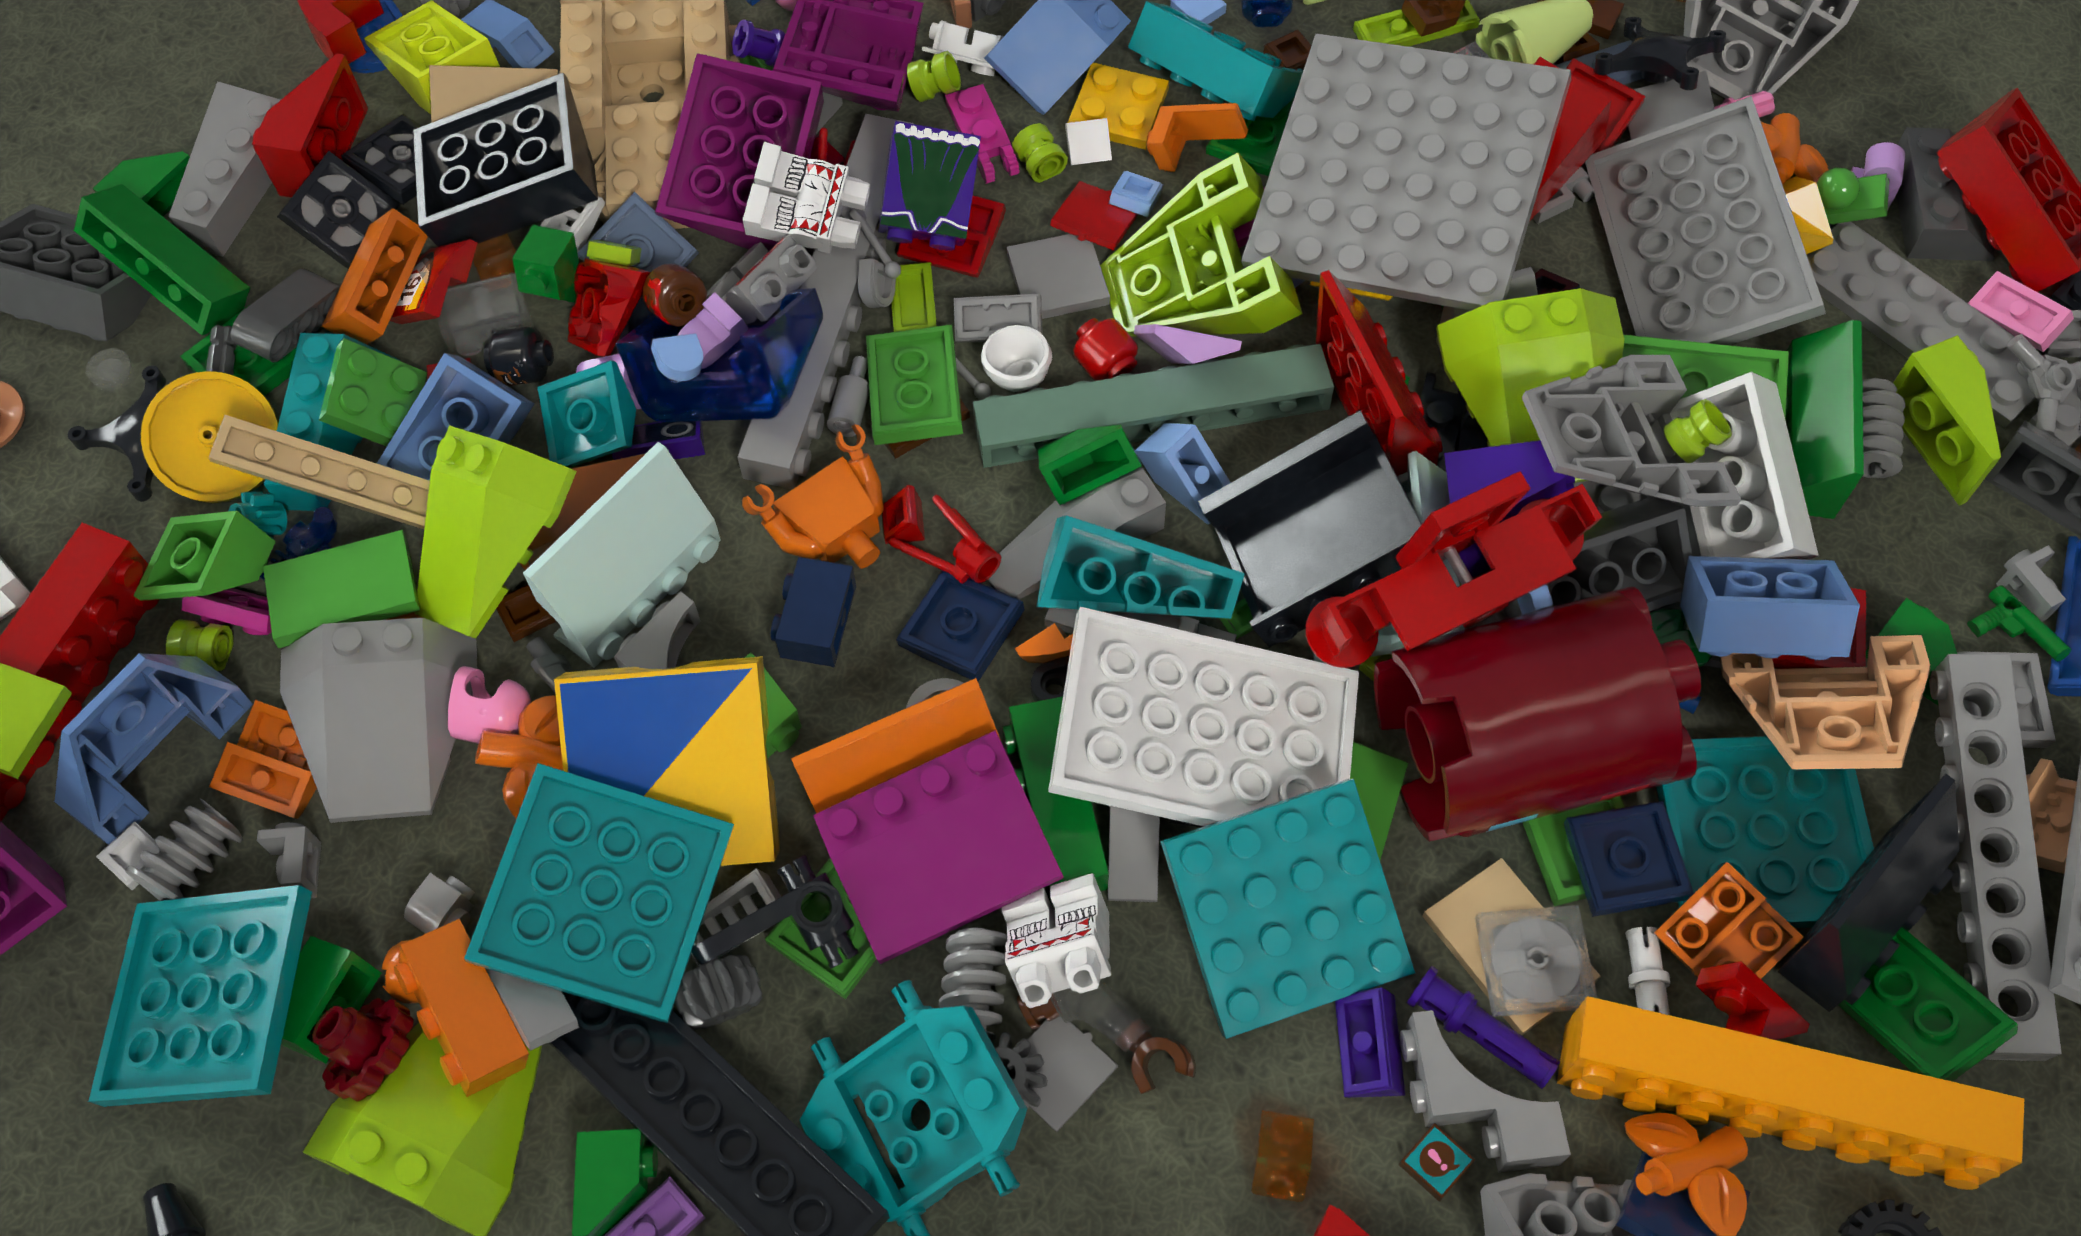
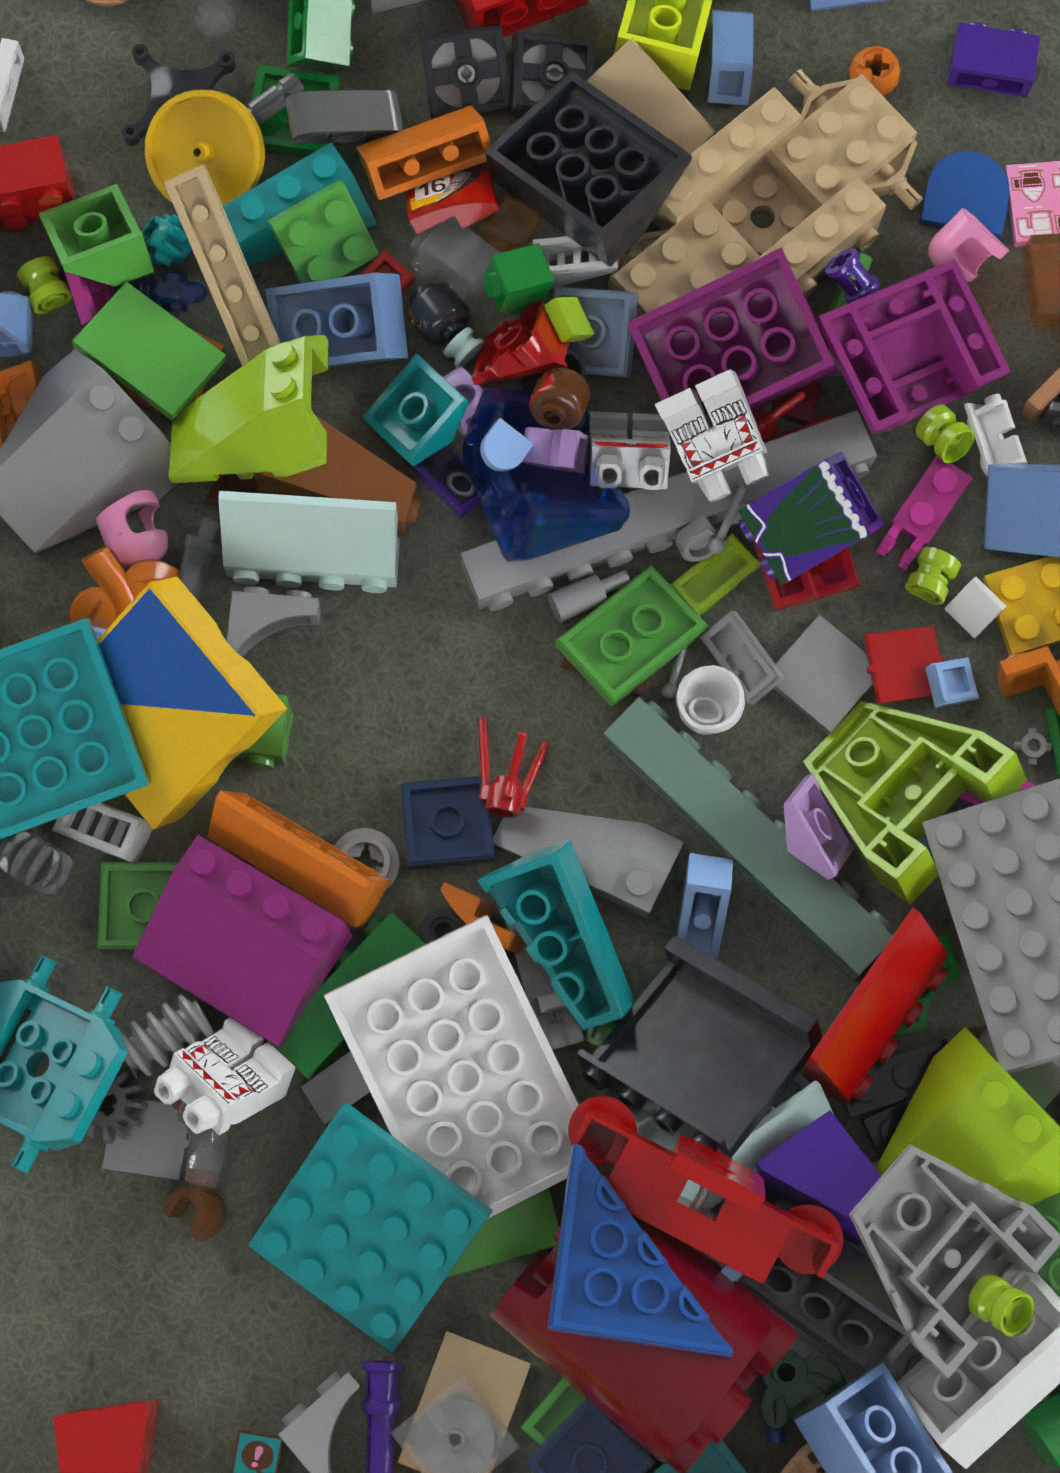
camera: 50 degrees right, 15 degrees up
(563, 356) = (463, 347): none -> light aqua bush
(814, 611) = (378, 706): dark blue brick -> none
(827, 934) = (122, 902): black piece -> none
(828, 512) = (469, 655): orange torso -> none
(904, 516) = (510, 713): red slope -> none
(1086, 460) = (642, 821): green slope -> none
(1105, 349) = (772, 764): red head -> none
(1283, 1156) = (187, 1341): clear orange bracket -> none
(1370, 1044) = (315, 1354): dark purple slope -> none
(1495, 670) = (615, 1278): none -> blue tile

